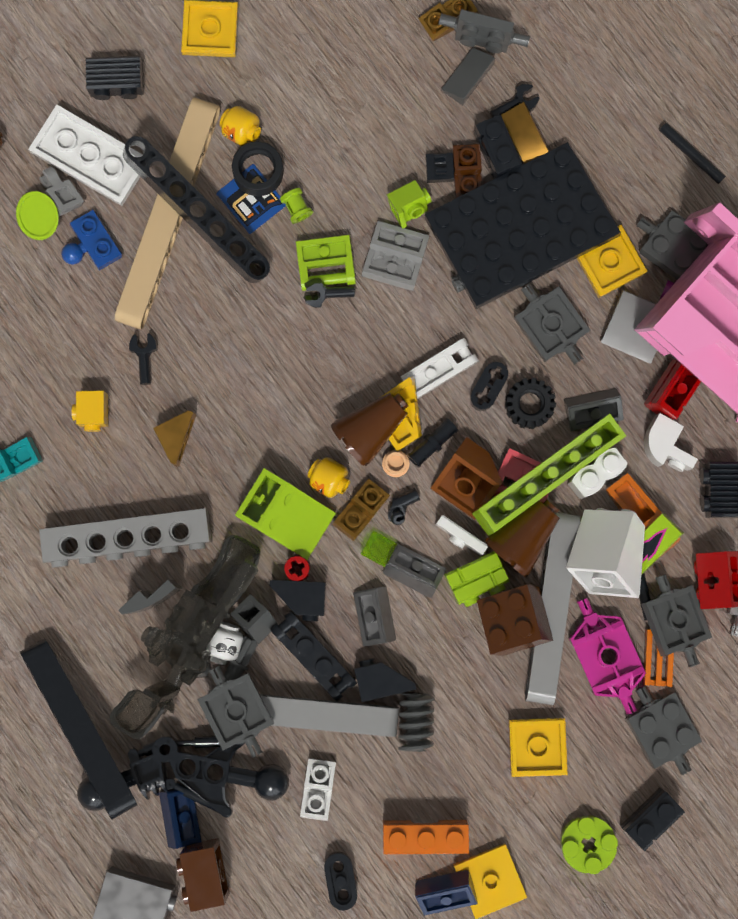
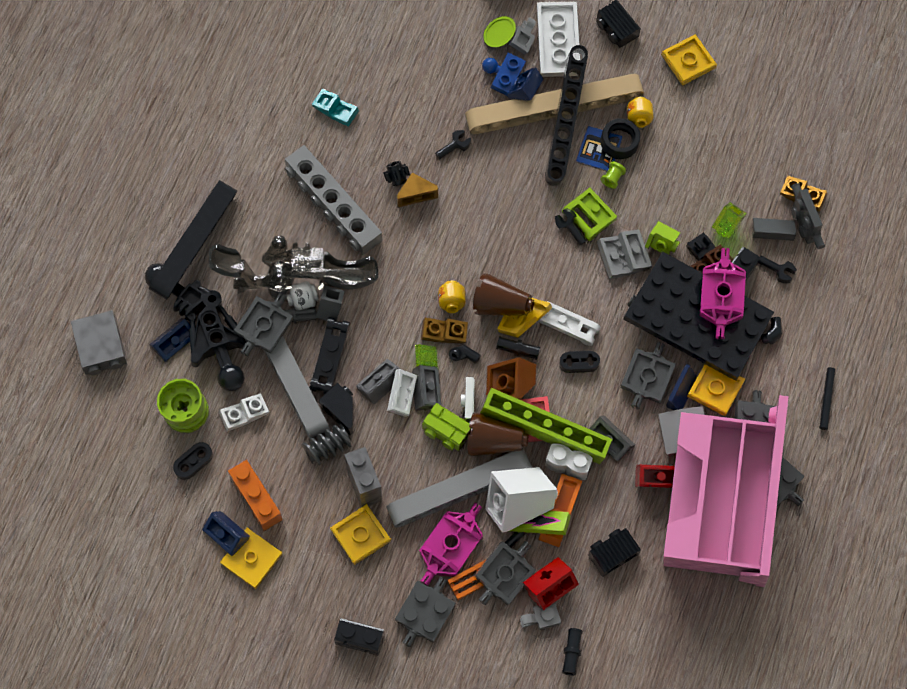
camera: 60 degrees right, 15 degrees down
(91, 410) = (399, 133): yellow brick -> none
(126, 230) = (526, 85): none -> dark blue slope
(140, 444) = (396, 173): none -> black gear
(144, 600) = (297, 232): dark grey slope -> none
(203, 875) = (146, 369): reddish brown brick -> none
(259, 865) = (176, 396): none -> lime wheel
(285, 514) = (410, 283): lime slope -> none
(288, 566) = (377, 307): red bush -> none
(302, 597) = (363, 327): black slope -> none
(395, 463) = (488, 334): light nougat plate -> none
(406, 602) = (402, 392): none -> white plate
(433, 117) = (729, 220): none -> clear neon green brick
(484, 709) = (363, 477): none -> flat silver brick
(514, 620) = (434, 463): reddish brown brick -> none
(524, 133) = (760, 282): pearl gold slope -> none
(530, 203) = (718, 308): none -> dark pink plate
(541, 391) = (586, 405): black tyre -> none
(587, 157) = (774, 333): none -> black arm
(588, 299) = (684, 384): none -> dark blue slope
(593, 860) = (305, 615): lime plate -> none
(660, 442) = (618, 491): white brick -> none

